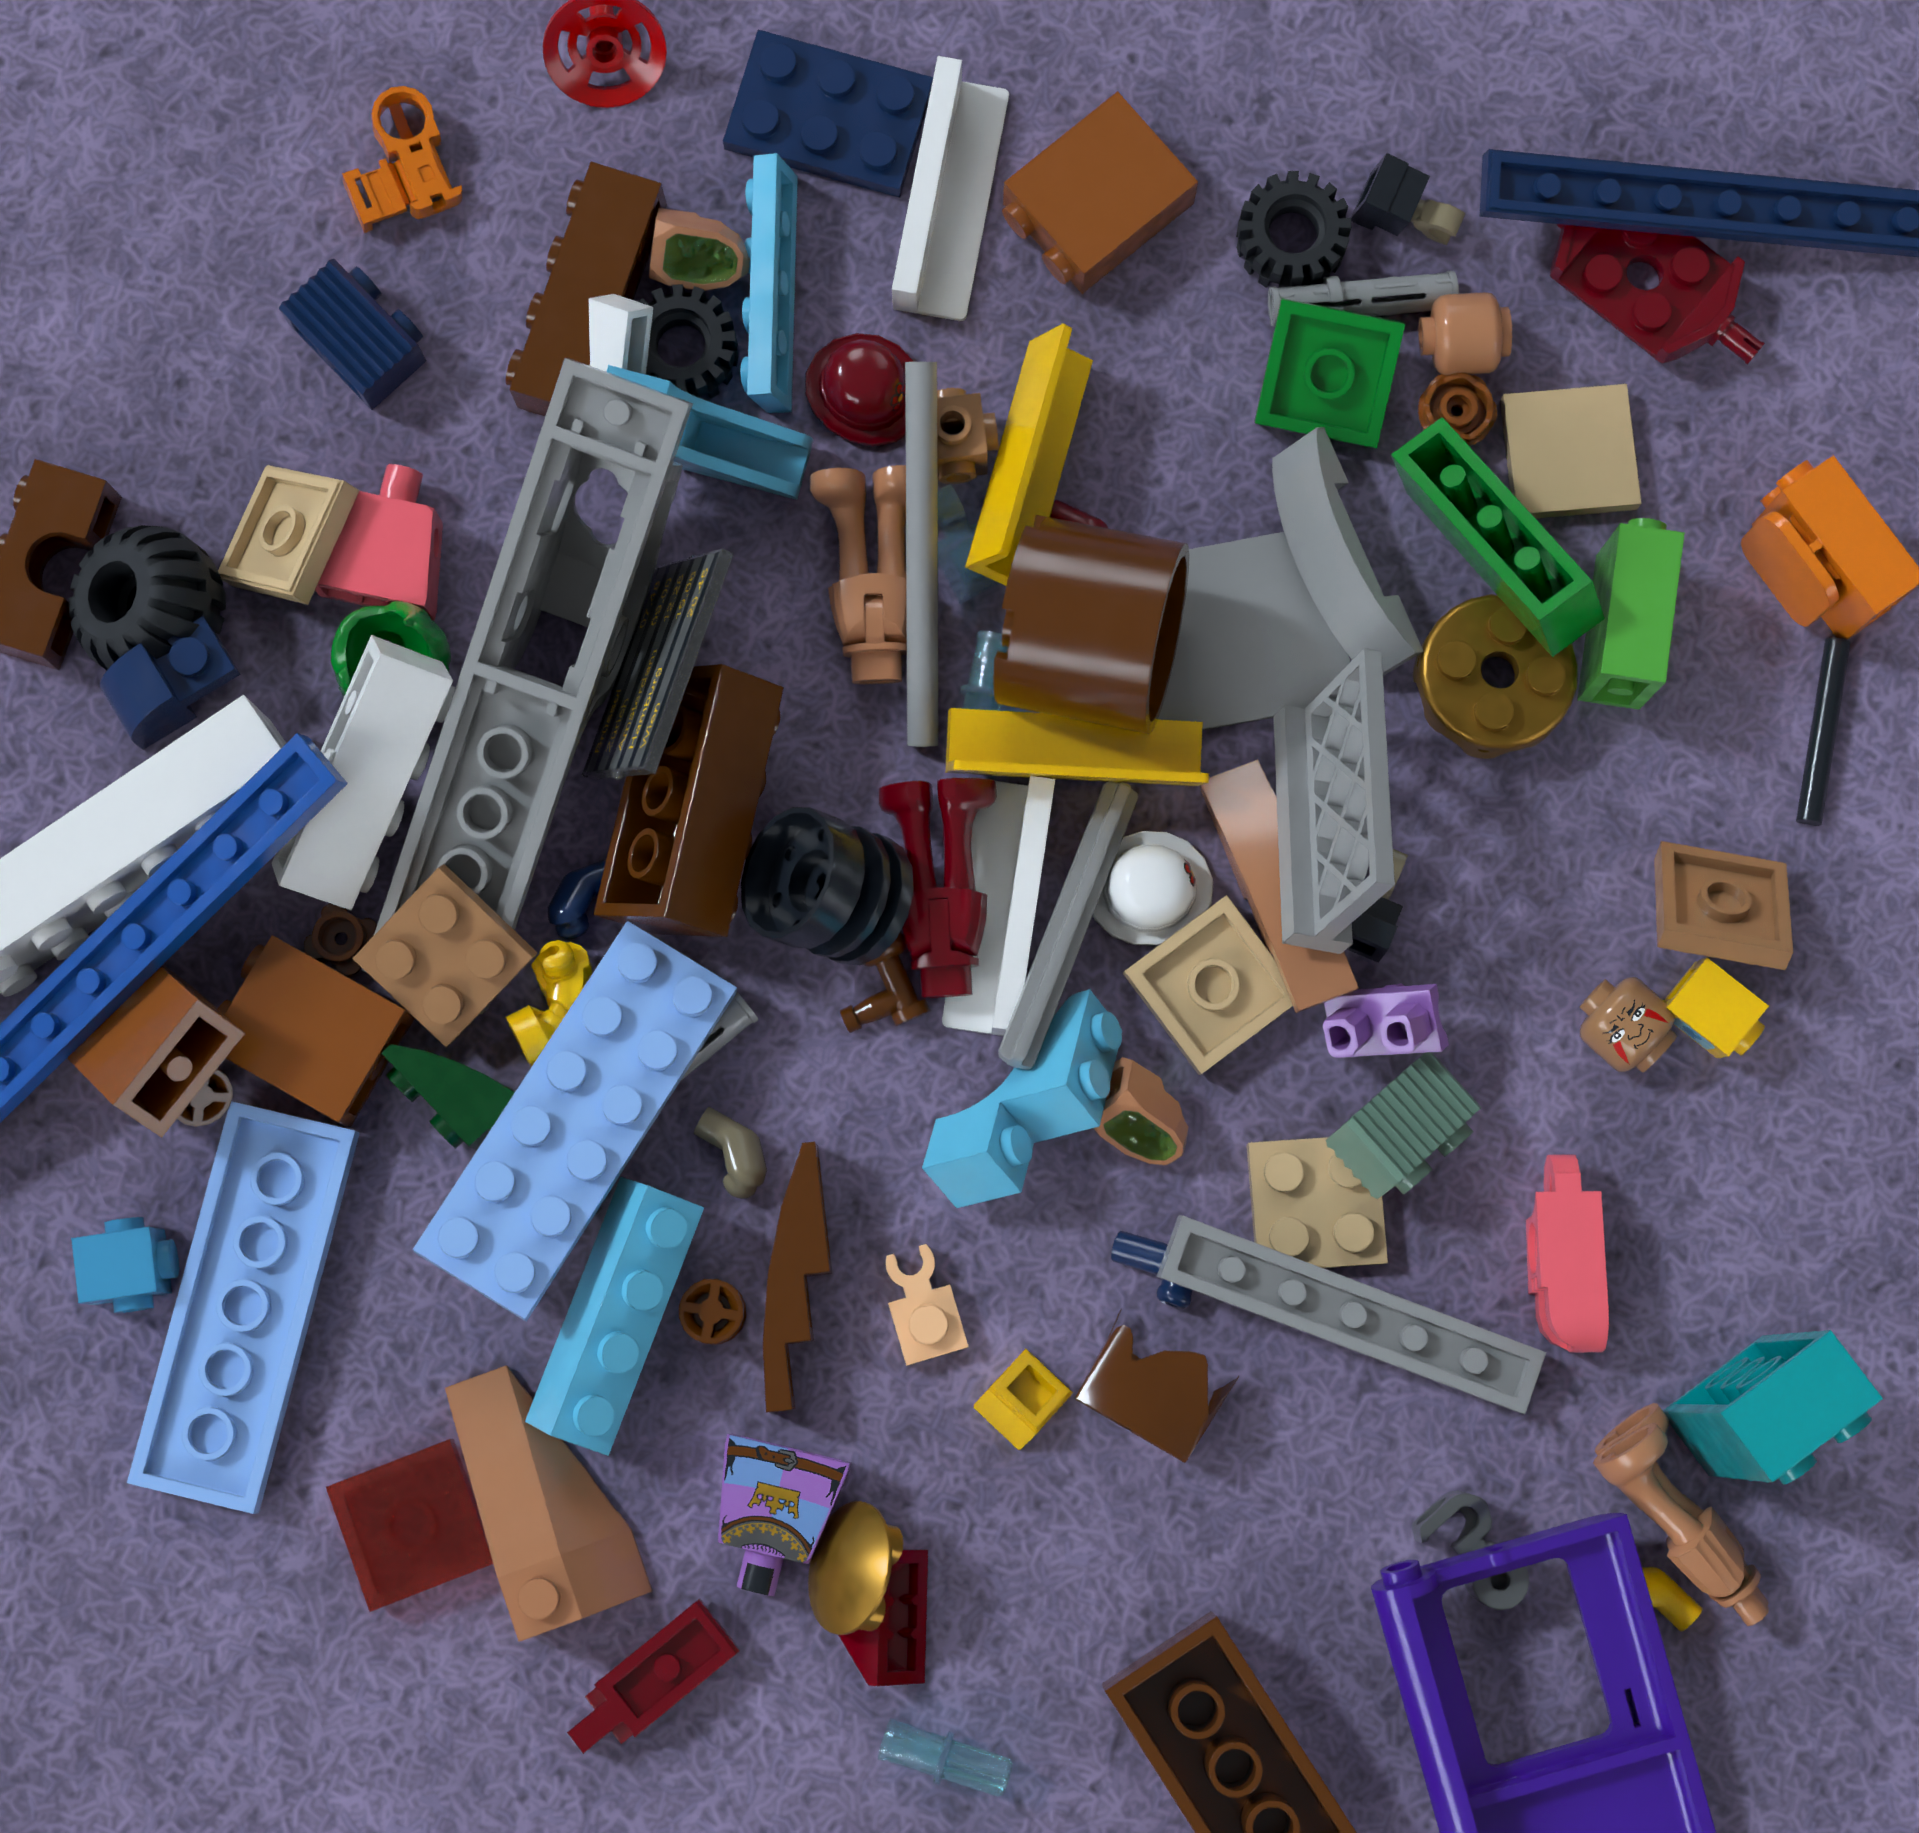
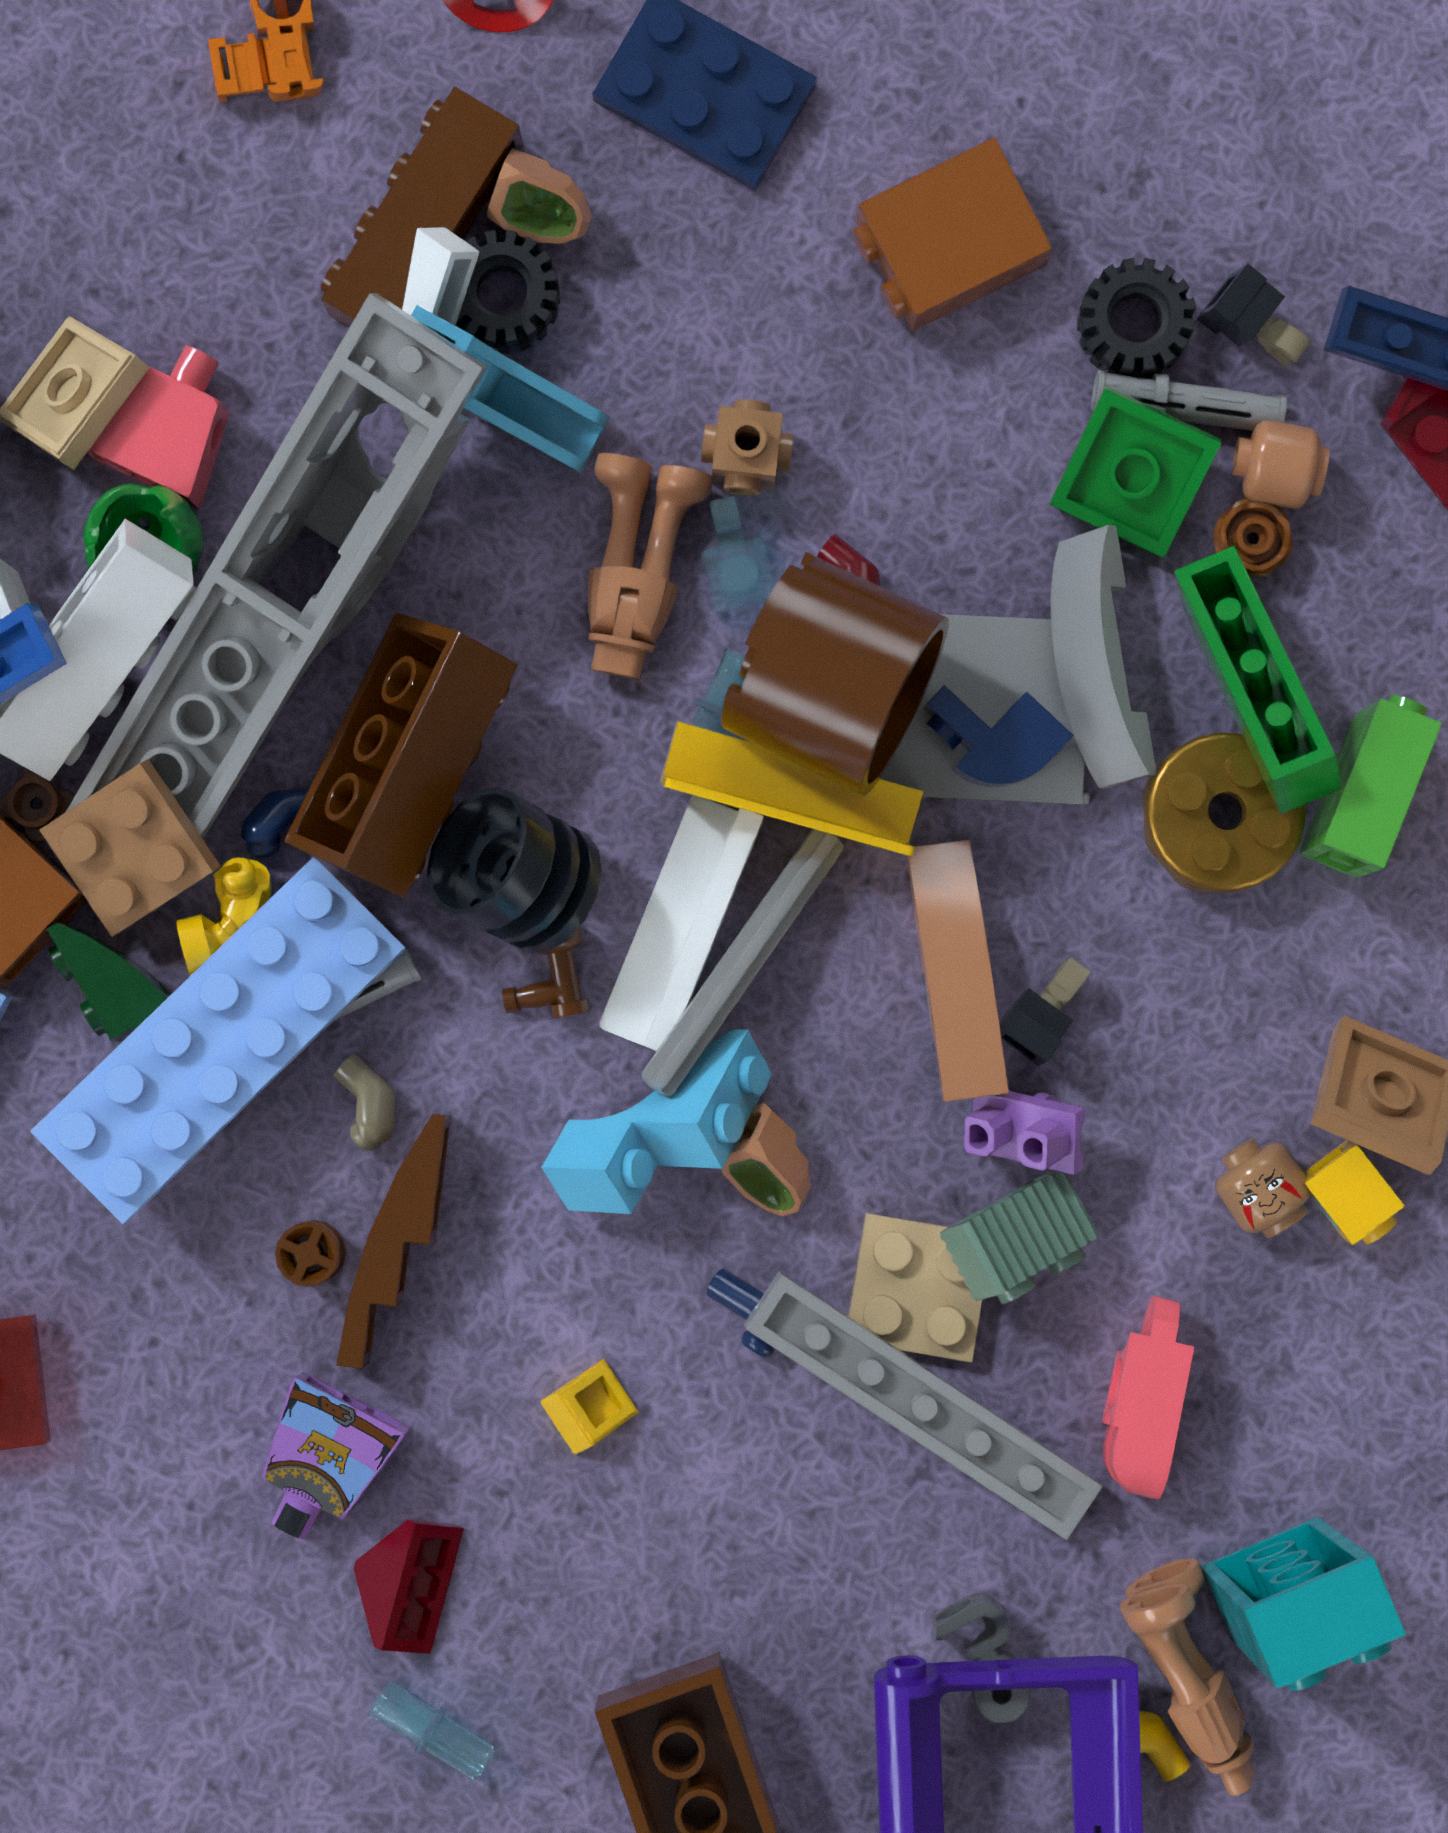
camera: 15 degrees right, 5 degrees up
(354, 333) = (182, 204): dark blue brick -> none
(545, 1519) = (103, 1415): nougat wedge -> none
(614, 1316) = (213, 1236): medium azure brick -> none
(655, 1677) = (175, 1587): dark red hinge -> none
(657, 667) = (399, 614): piece -> none
(770, 308) = (600, 272): medium azure plate -> none
(853, 1569) = (385, 1533): pearl gold dish -> none
(859, 389) = (673, 377): dark red hat -> none
(921, 553) = (687, 559): light grey piece -> none
(926, 1318) = (514, 1307): light nougat plate -> none
(949, 195) = (804, 200): white panel -> none
(949, 920) = (621, 928): dark red piece -> none
(1030, 450) = (820, 481): yellow panel -> none
(1153, 888) = (837, 943): white hat -> none
(1153, 1396) = (712, 1438): reddish brown piece -> none
(1211, 985) = (868, 1052): tan plate -> none
(1263, 669) = (1002, 754): none -> dark blue brick
(1333, 807) = (1026, 912): light grey fence -> none
(1571, 450) = (1355, 605): tan tile -> none

